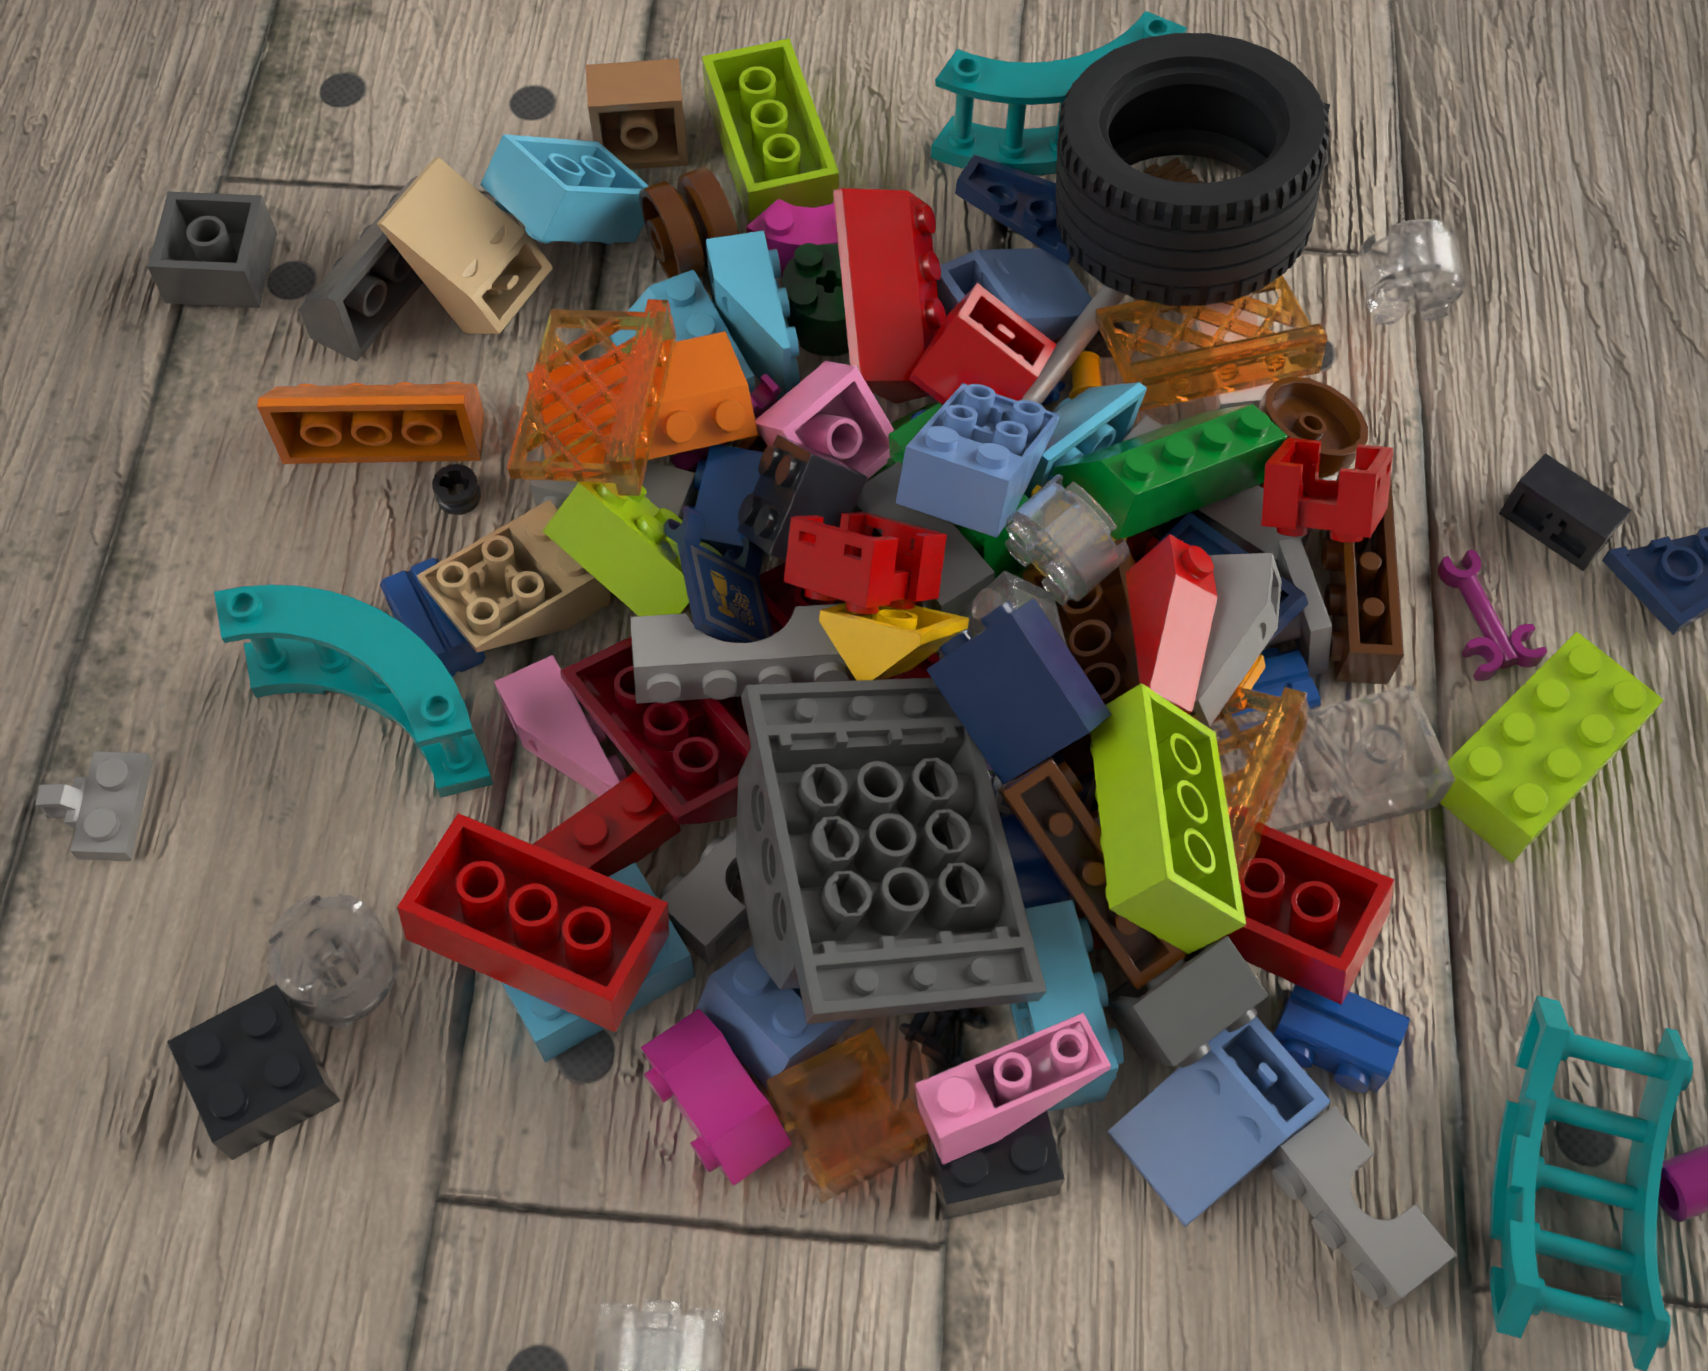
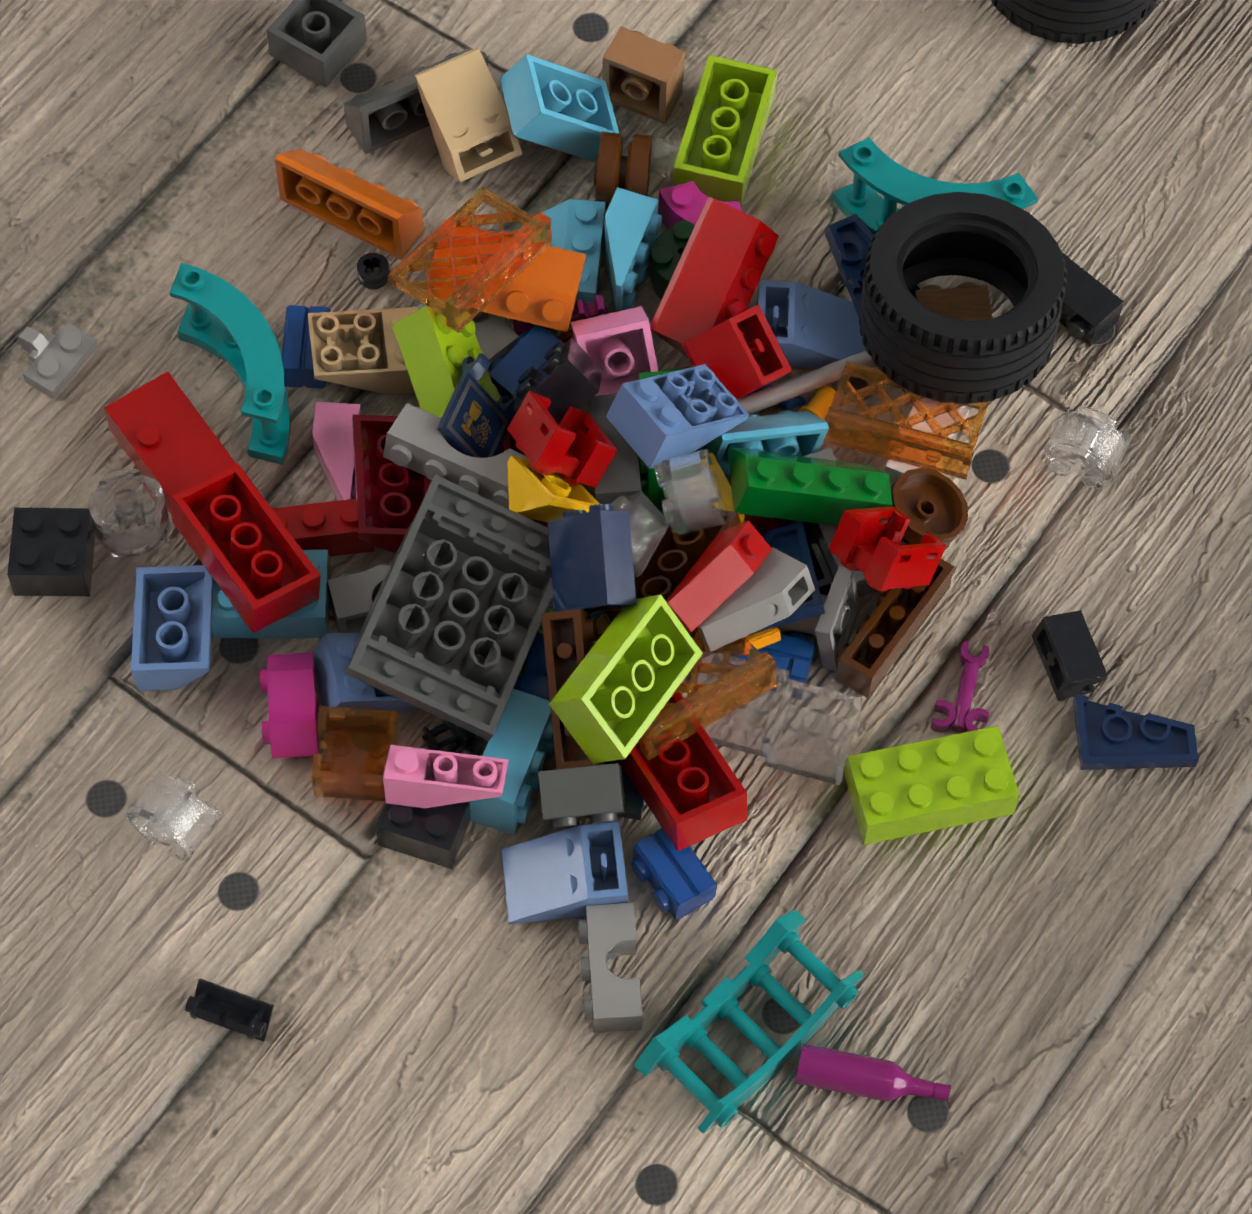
camera: 30 degrees right, 0 degrees up
(330, 833) = (166, 436): none -> red brick
(490, 1082) = (171, 626): none -> medium blue slope

